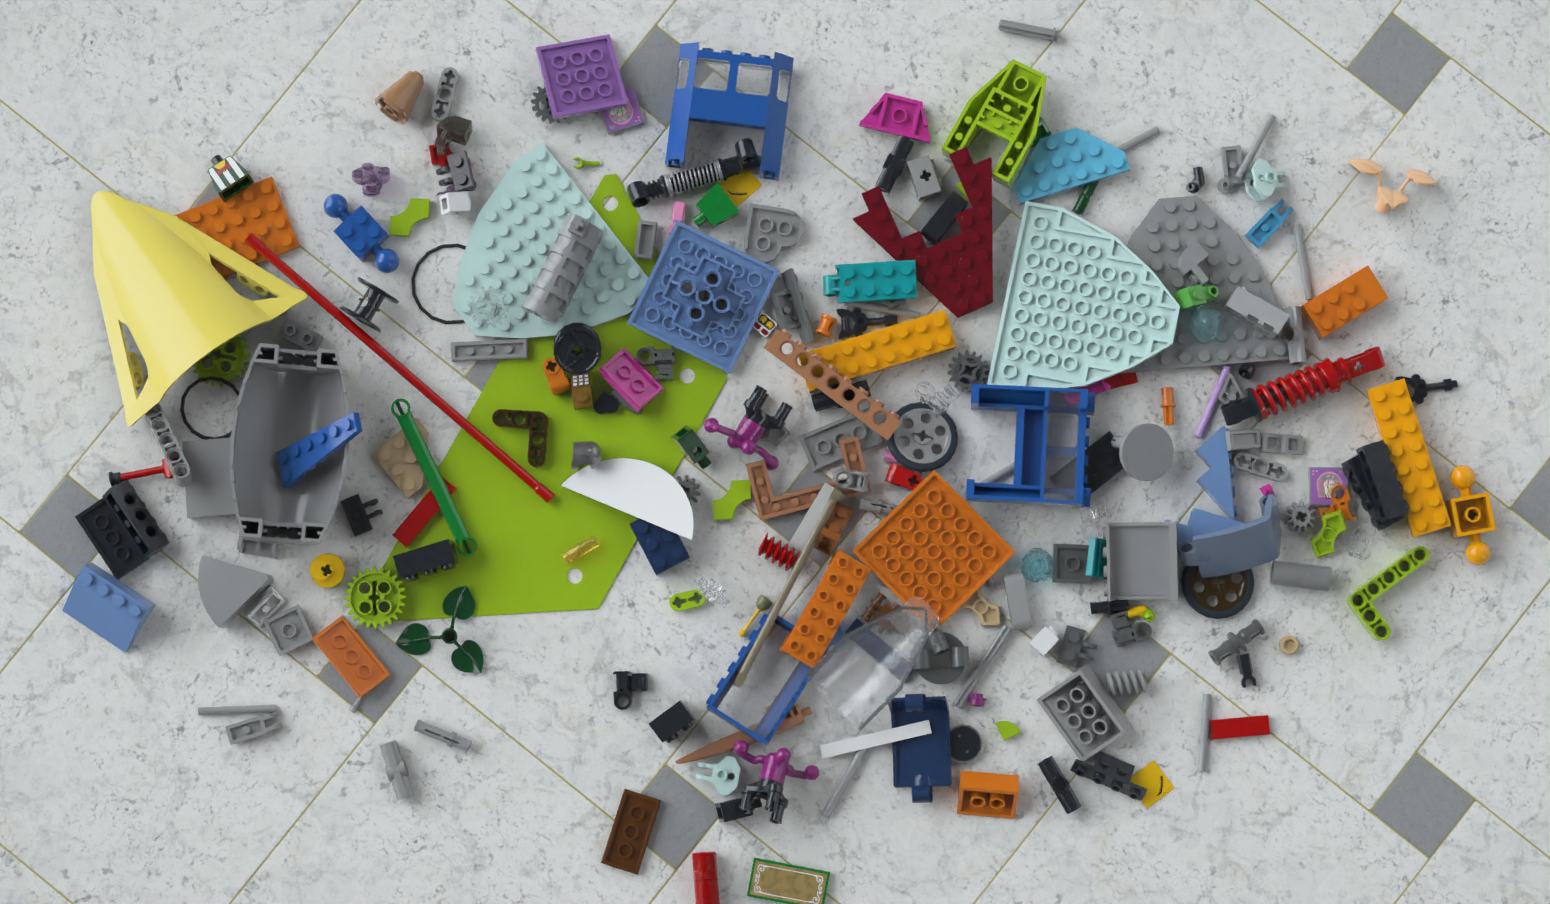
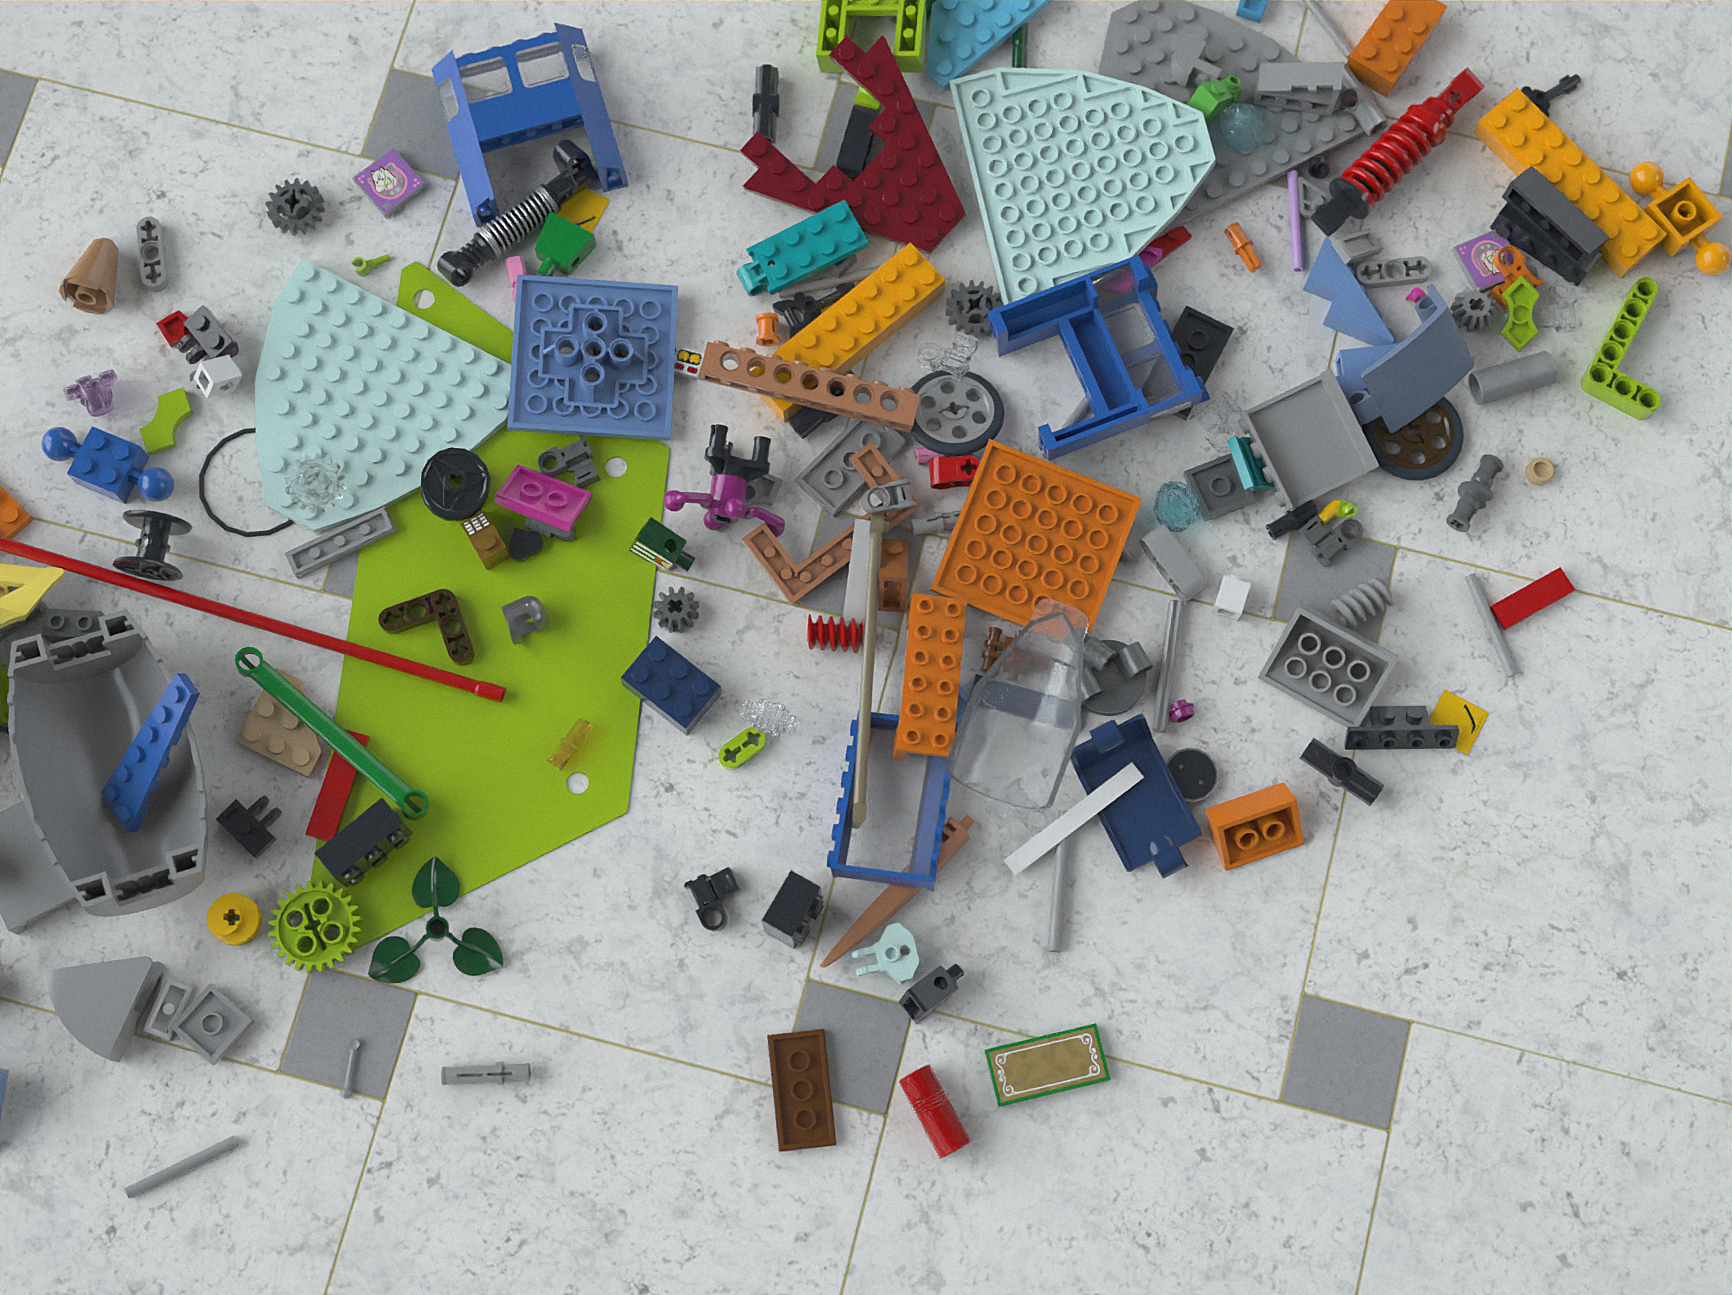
camera: 30 degrees left, 10 degrees down
(251, 728) = (211, 1183): light grey hinge -> none
(257, 548) = (123, 929): light grey hinge -> none
(351, 656) = (314, 1022): orange tile -> none
(396, 770) = (440, 1150): light grey piece -> none
(452, 129) = (180, 289): clear smoke brick -> none
(557, 379) = (444, 537): orange piece -> none
(563, 268) = (394, 387): light grey piece -> none
(581, 76) = (320, 157): medium lavender plate -> none
(637, 490) = (614, 632): white sticker -> none
(645, 240) = (488, 322): light grey tile -> none
(738, 493) = (748, 583): lime tile -> none
(762, 605) = (844, 710): hinge -> none
(770, 230) = (645, 244): light grey plate -> none
(771, 781) = (962, 928): wheel -> none
(791, 309) = (711, 320): dark grey bracket -> none
(898, 117) = (743, 47): dark pink wing -> none
(923, 188) = (810, 104): light grey brick -> none
(987, 613) = (1141, 596): tan tile -> none
(1007, 729) = (1238, 731): lime tile -> none
(1071, 647) = (1269, 590): dark grey hinge -> none
(1145, 451) = (1244, 304): light grey piece -> none
(1245, 669) = (1503, 524): black bar -> none
(1281, 443) = (1405, 235): light grey slope -> none

